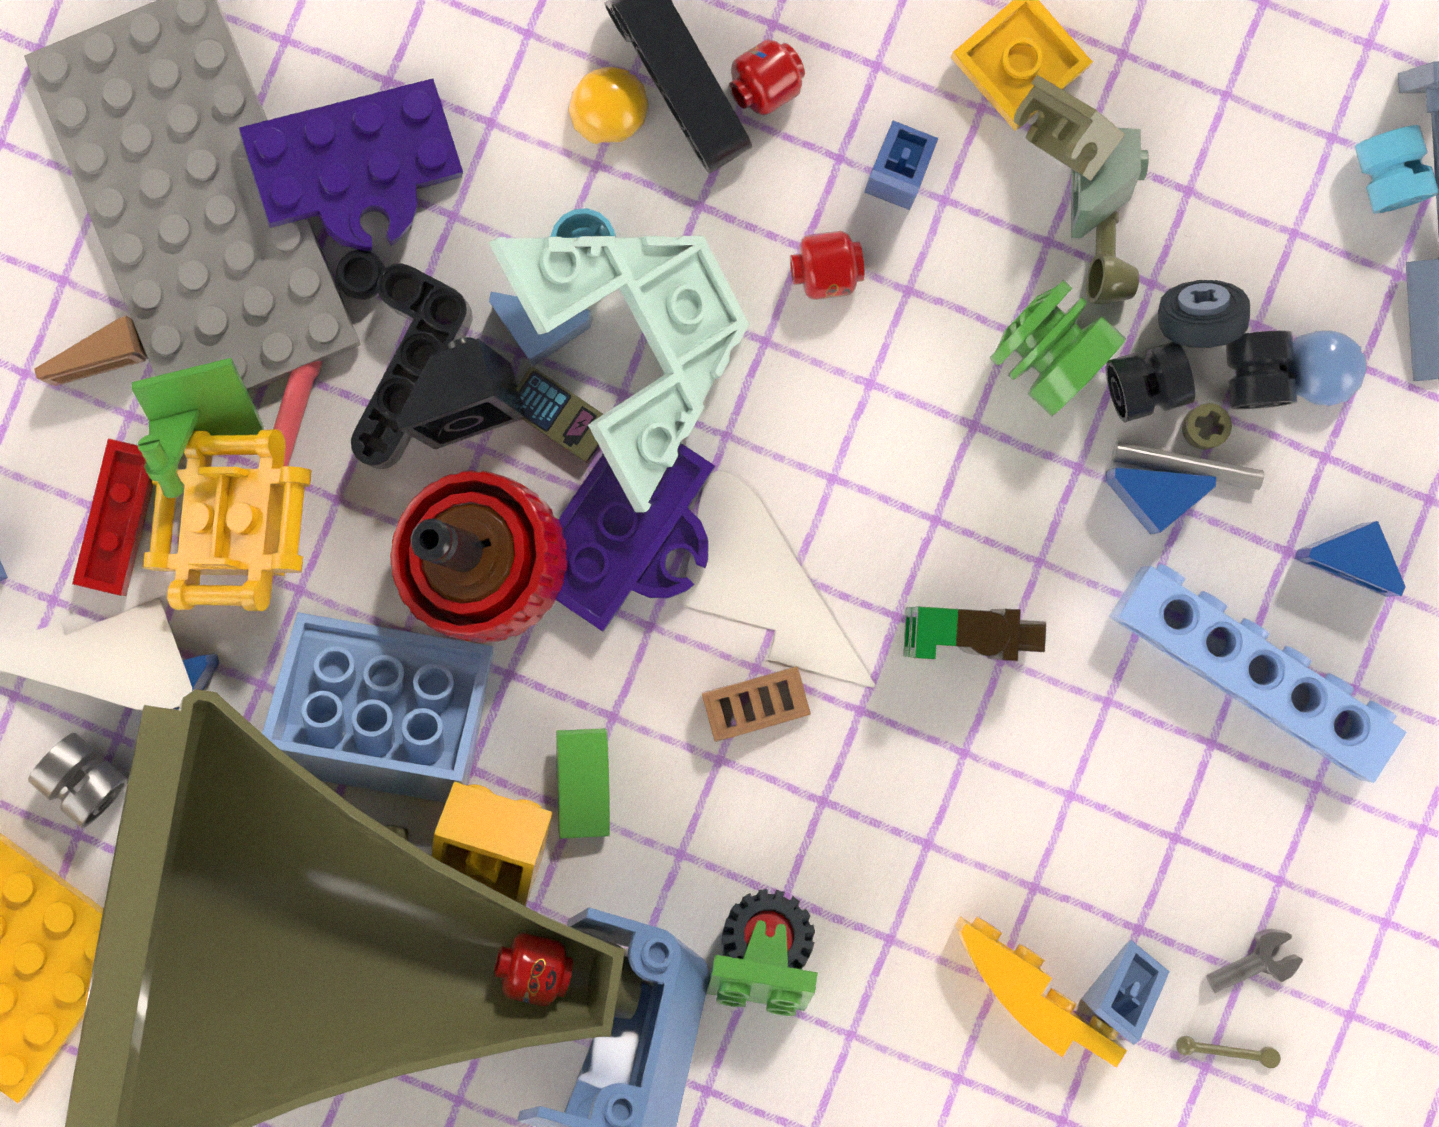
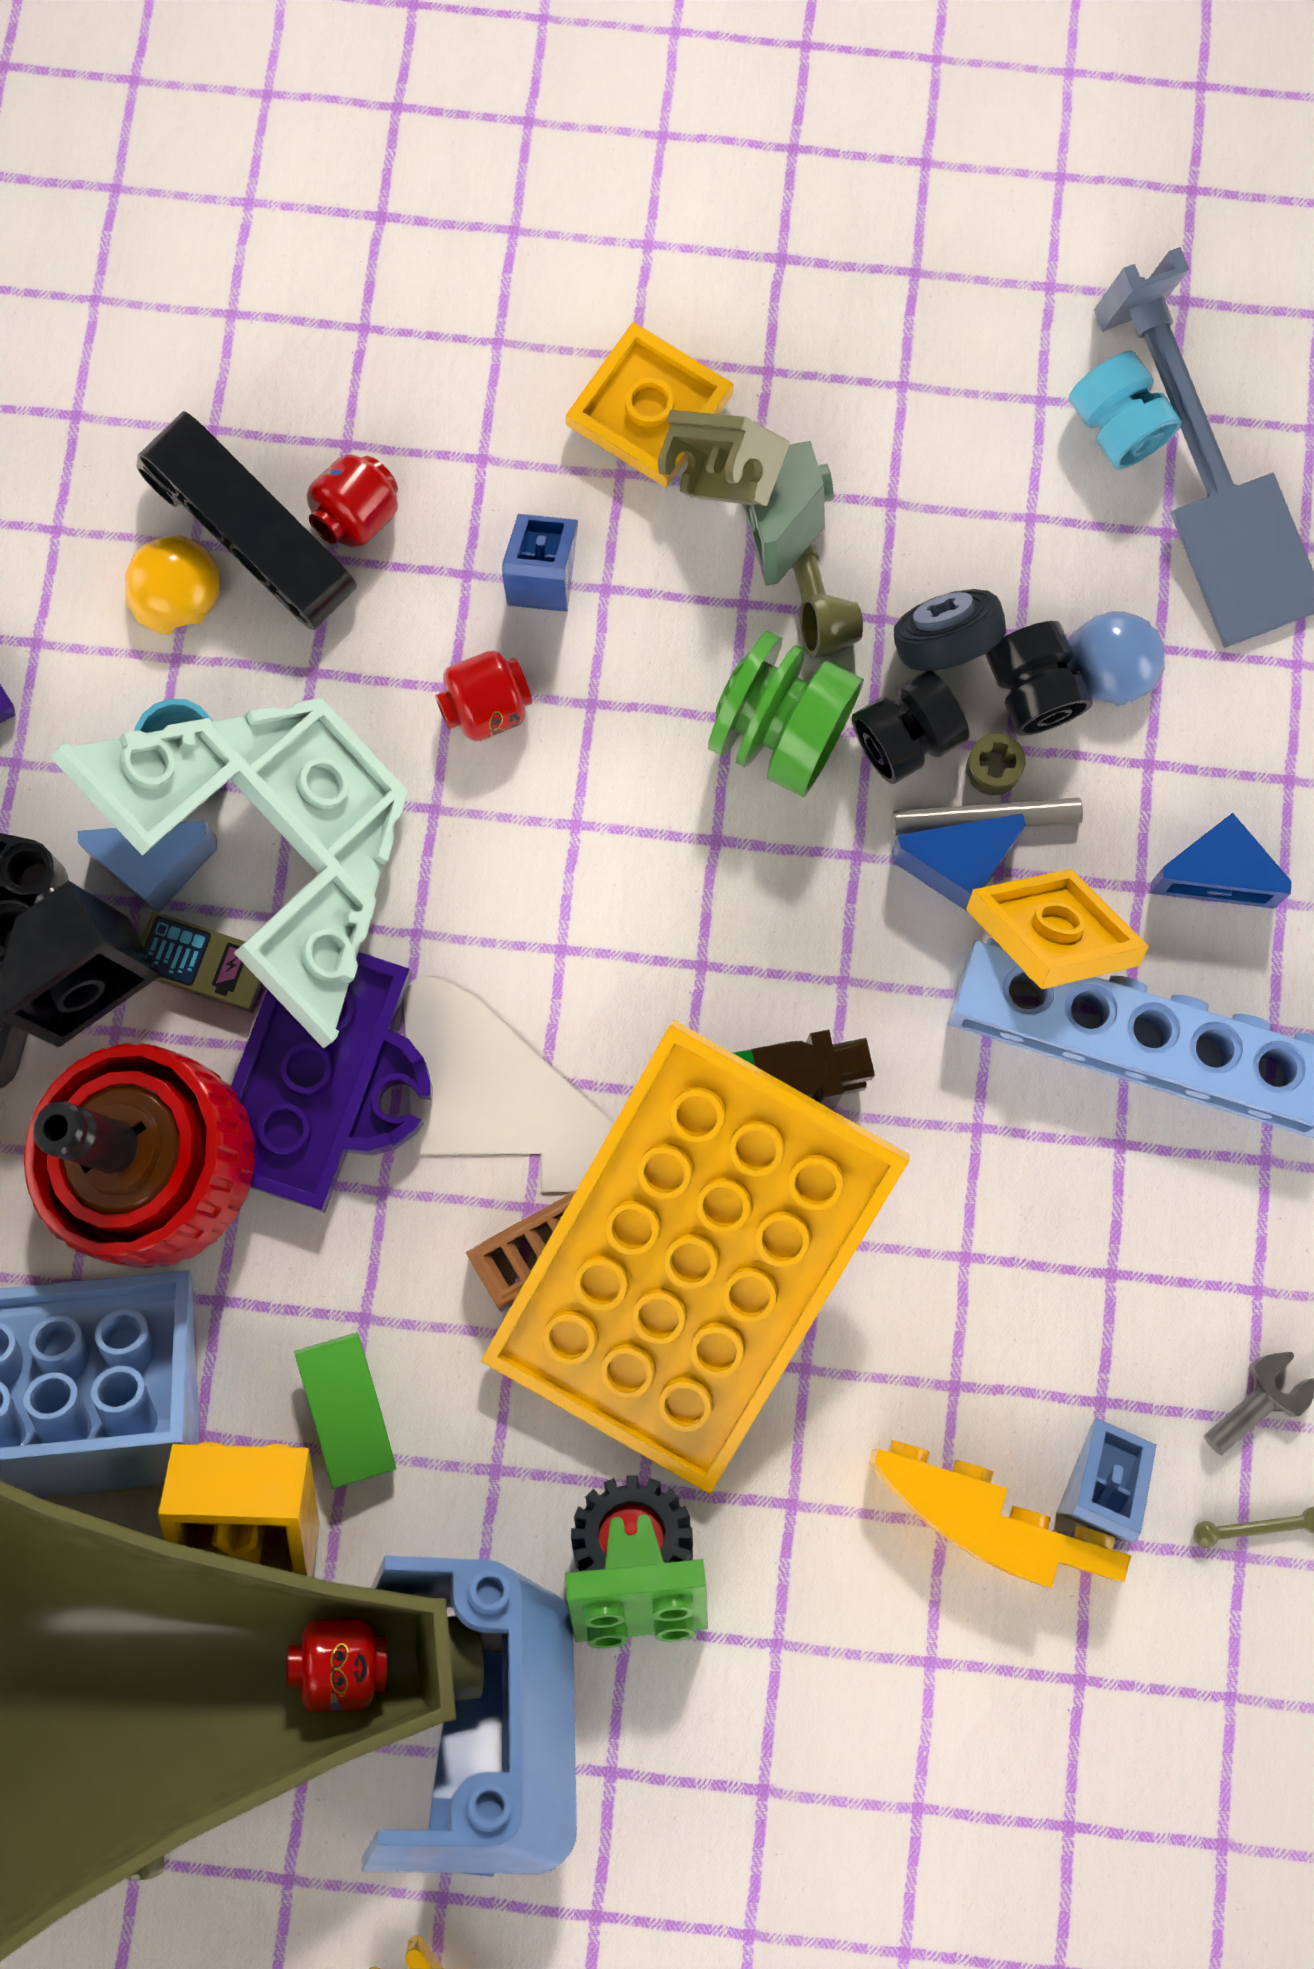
camera: 15 degrees left, 10 degrees down
(872, 748) = (694, 1256): none -> yellow plate
(1215, 574) = (1056, 928): none -> yellow plate

